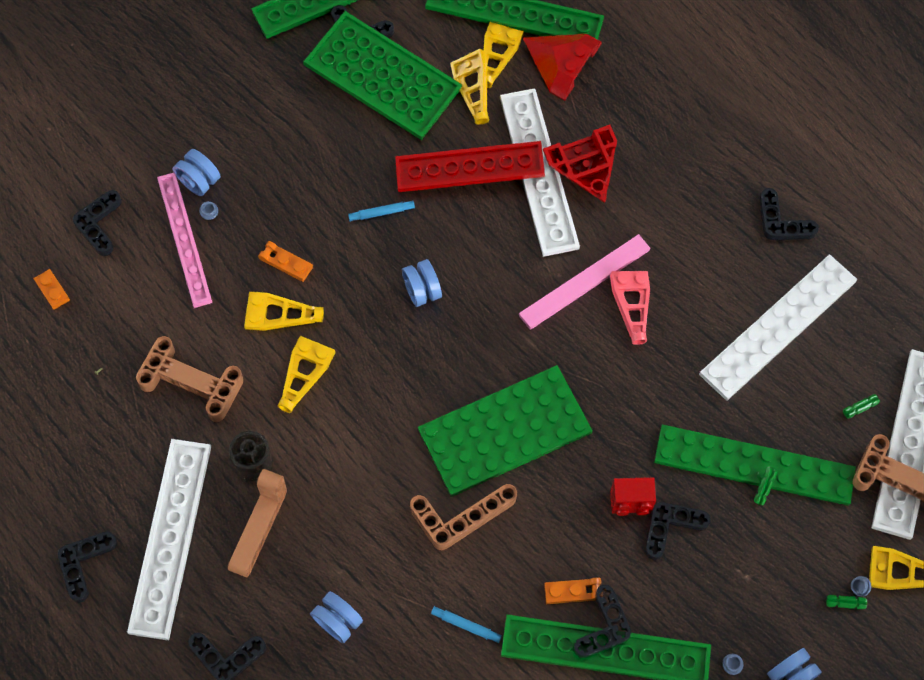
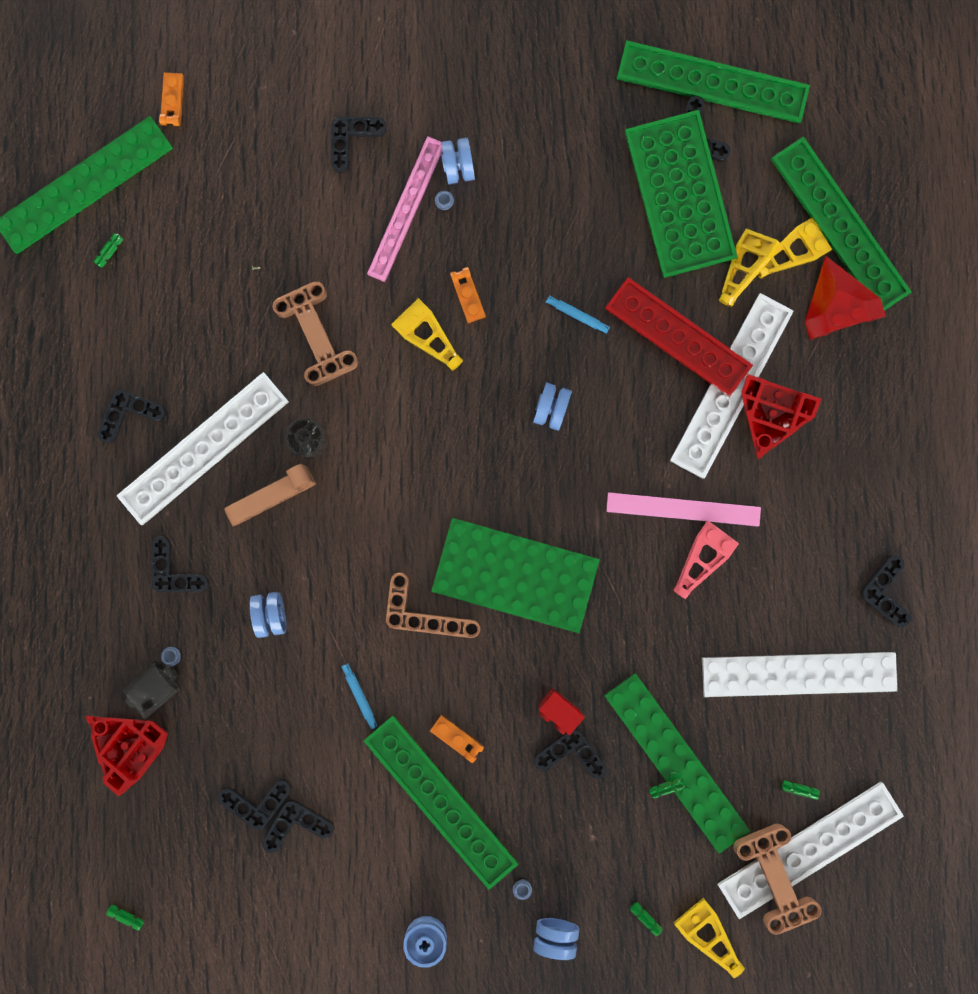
camera: 45 degrees right, 20 degrees up
(51, 289) = (272, 167): orange plate -> none
(309, 351) = (425, 389): yellow plate -> none
(610, 631) = (453, 794): black beam -> none
(861, 586) = (667, 918): sand blue plate -> none

